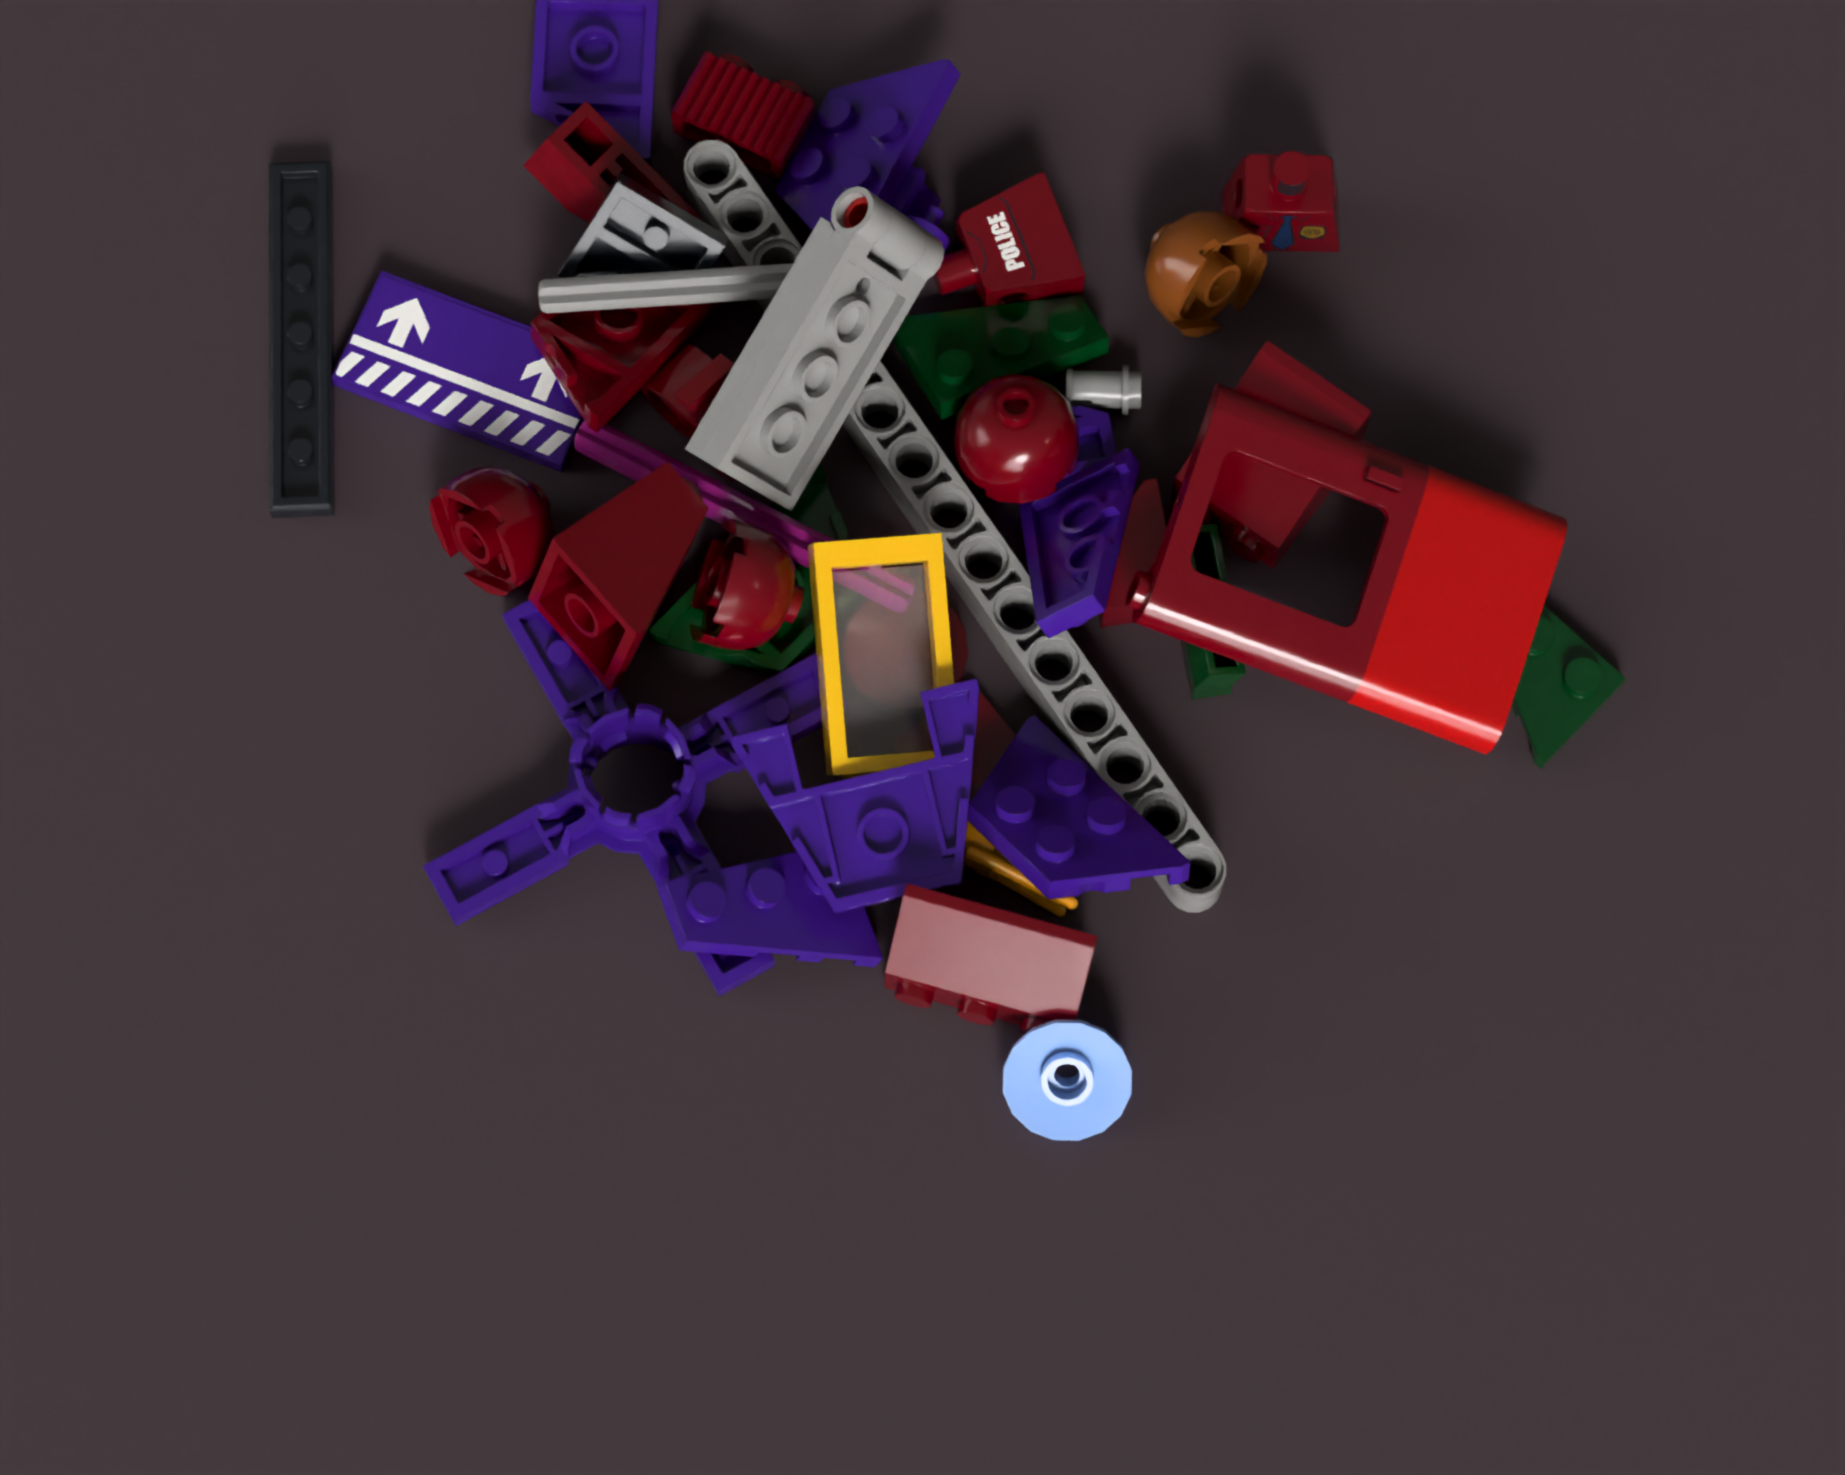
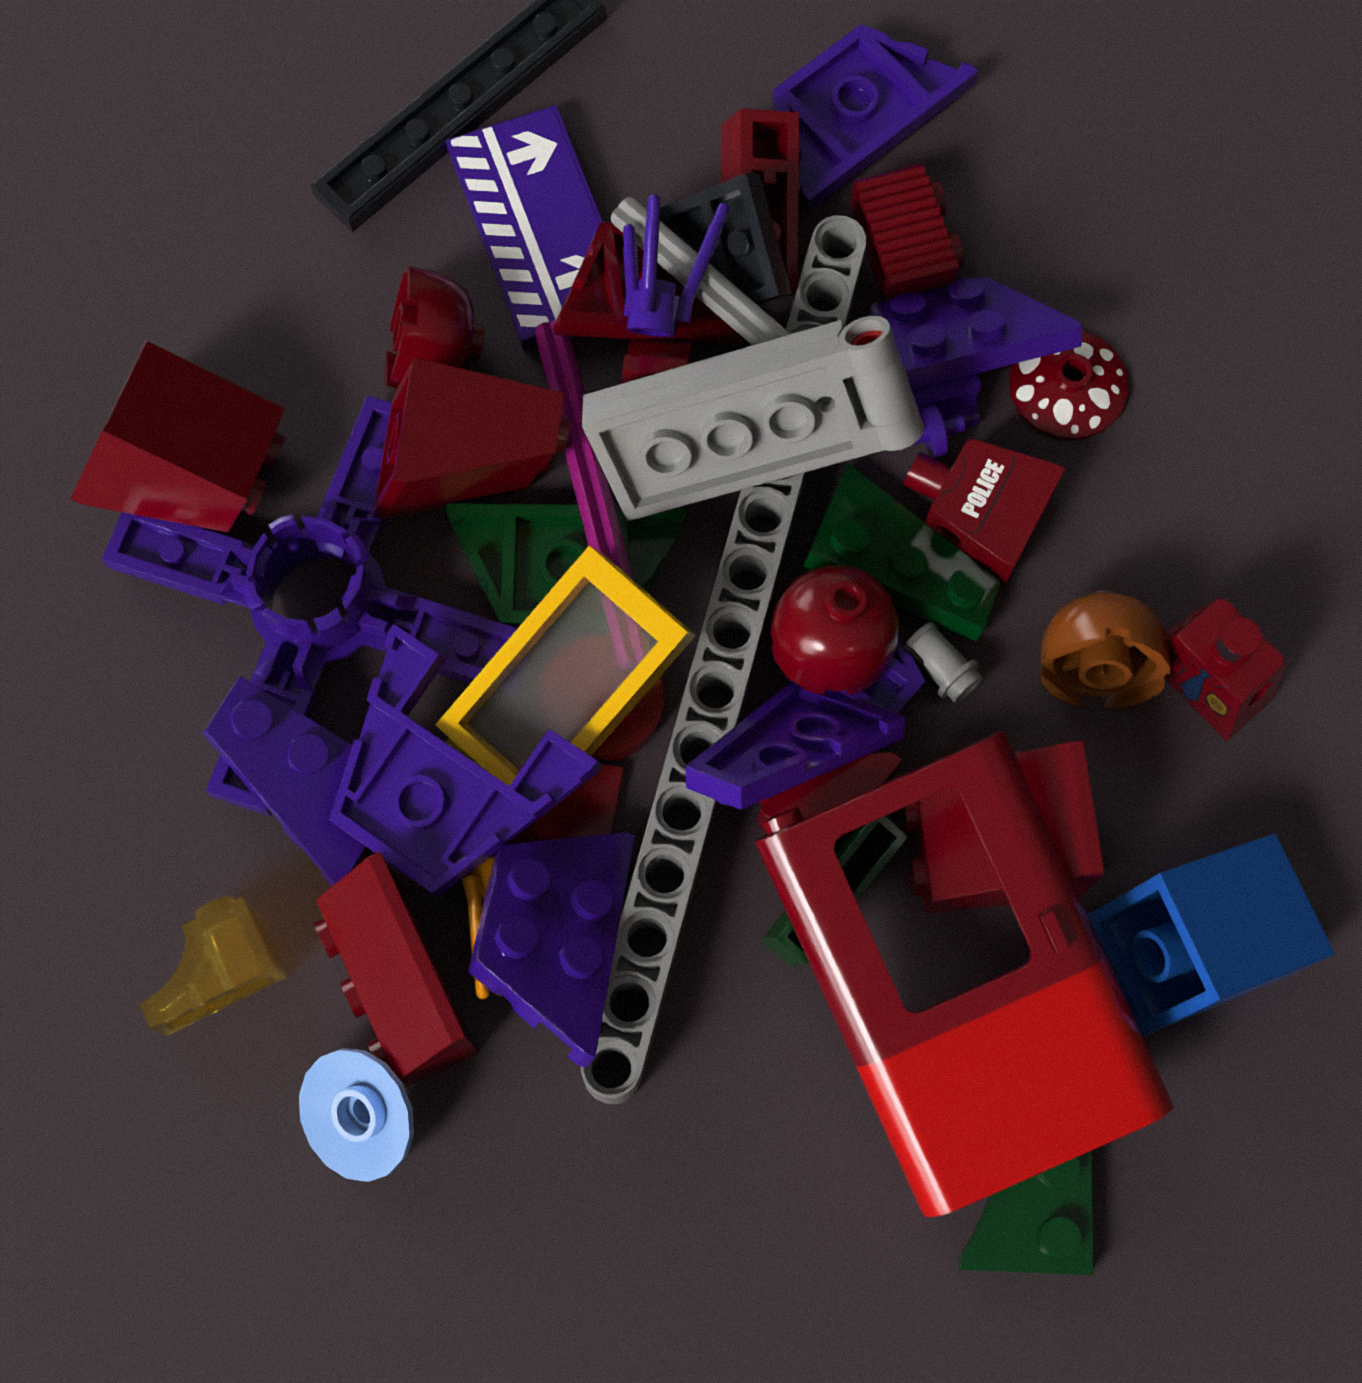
camera: 50 degrees right, 0 degrees up
(418, 785) = (181, 446): none -> dark red slope
(651, 338) = (652, 302): none -> dark purple plant
(745, 589) = (526, 539): dark red cylinder -> none
(863, 1081) = (221, 964): none -> clear yellow arch
(991, 127) = (1069, 407): none -> dark red dish
(1469, 384) = (1209, 933): none -> blue slope

